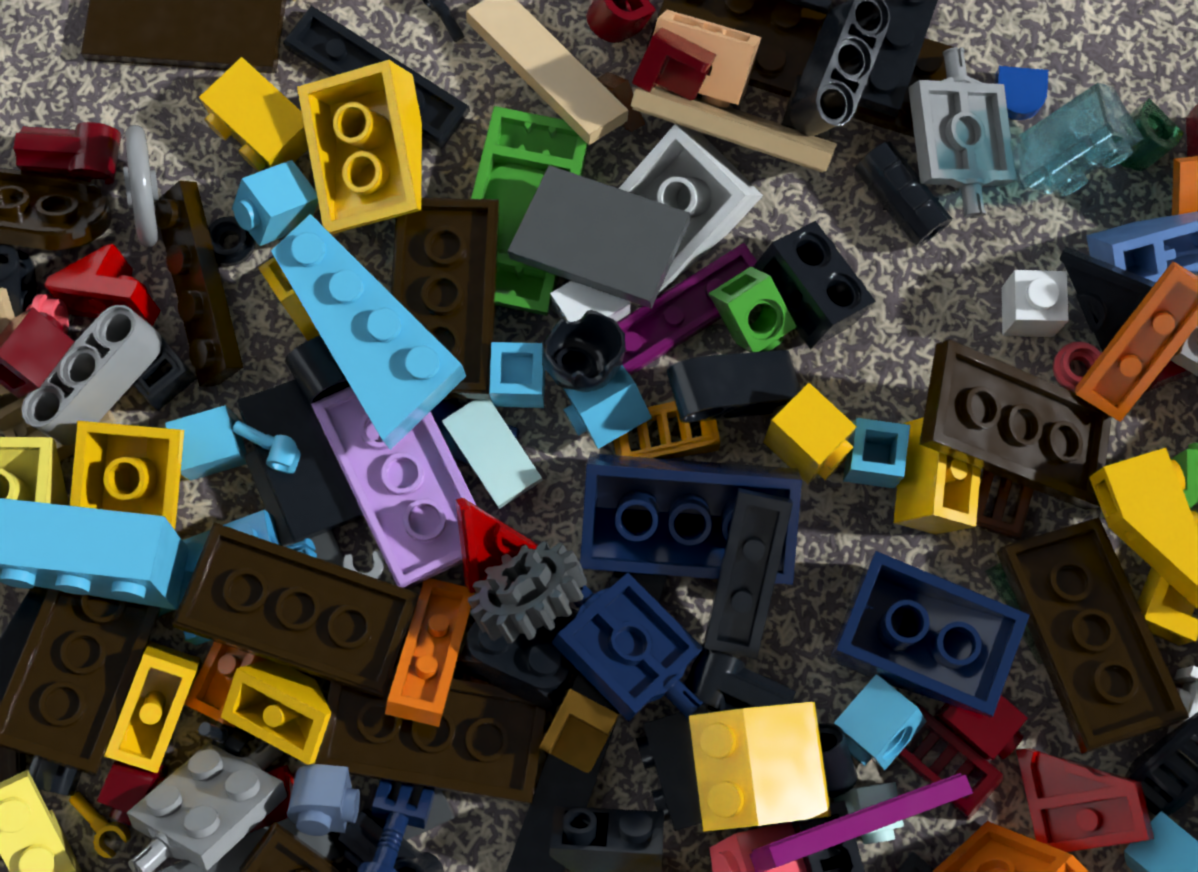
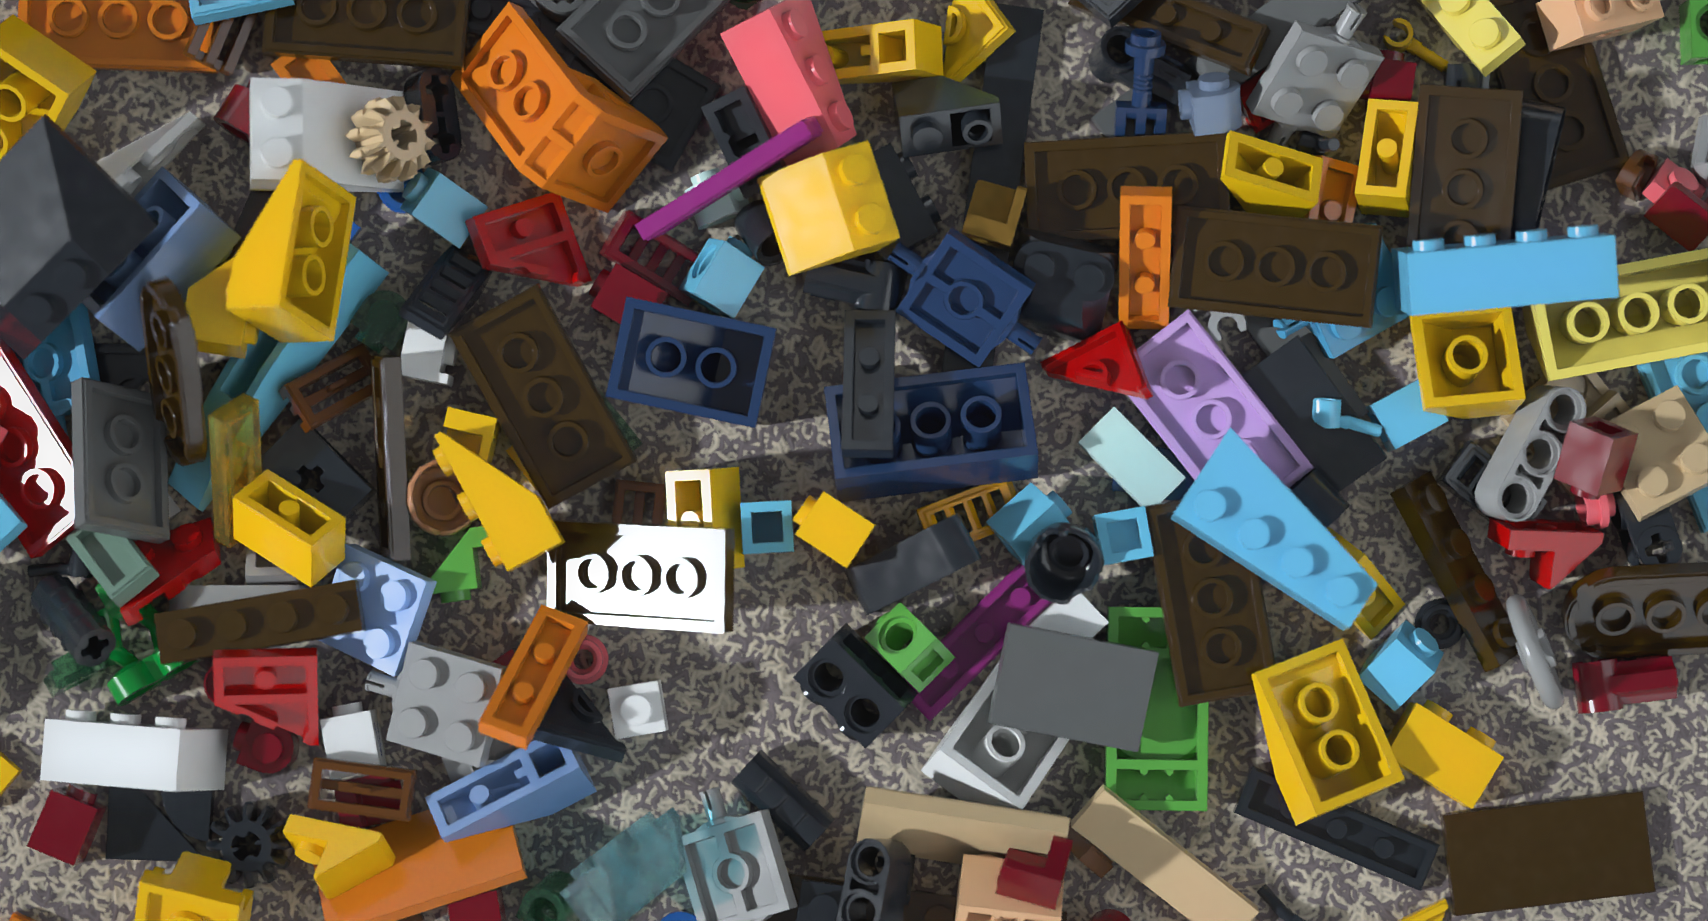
camera: 160 degrees right, 10 degrees up
(527, 591) = (1067, 323): dark grey gear -> none

